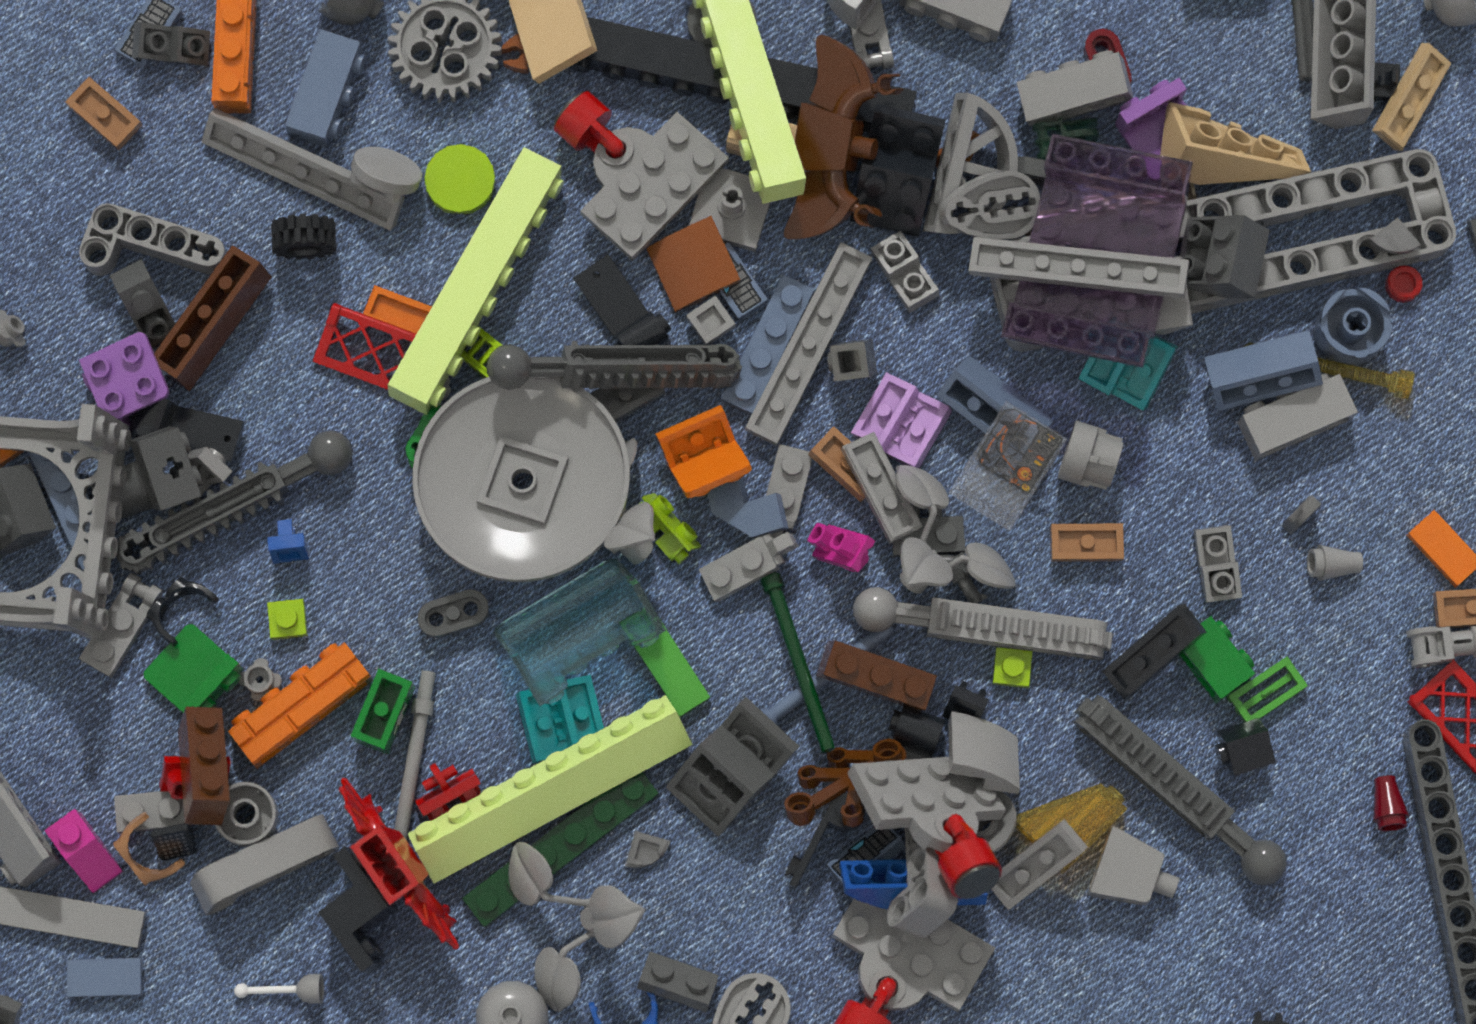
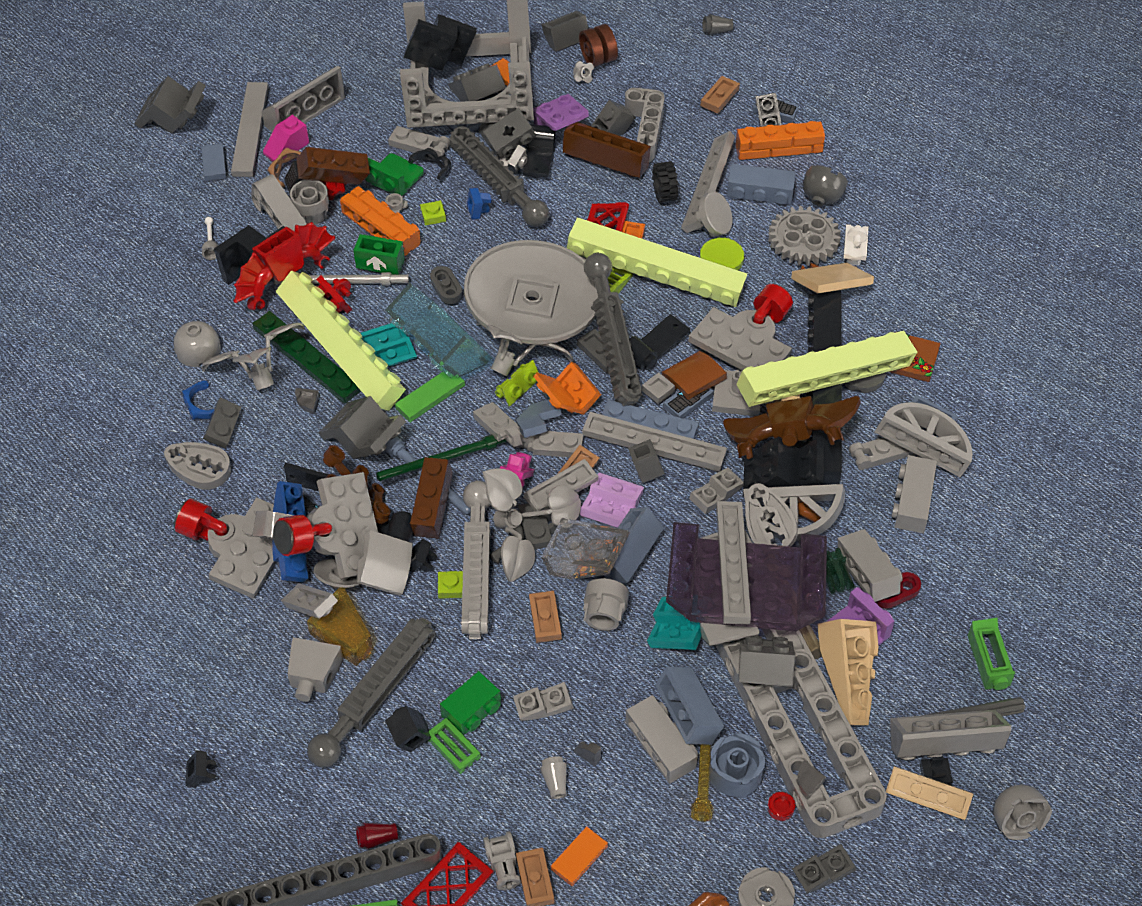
camera: 85 degrees right, 25 degrees down
(1154, 651) = (469, 657): black plate -> none

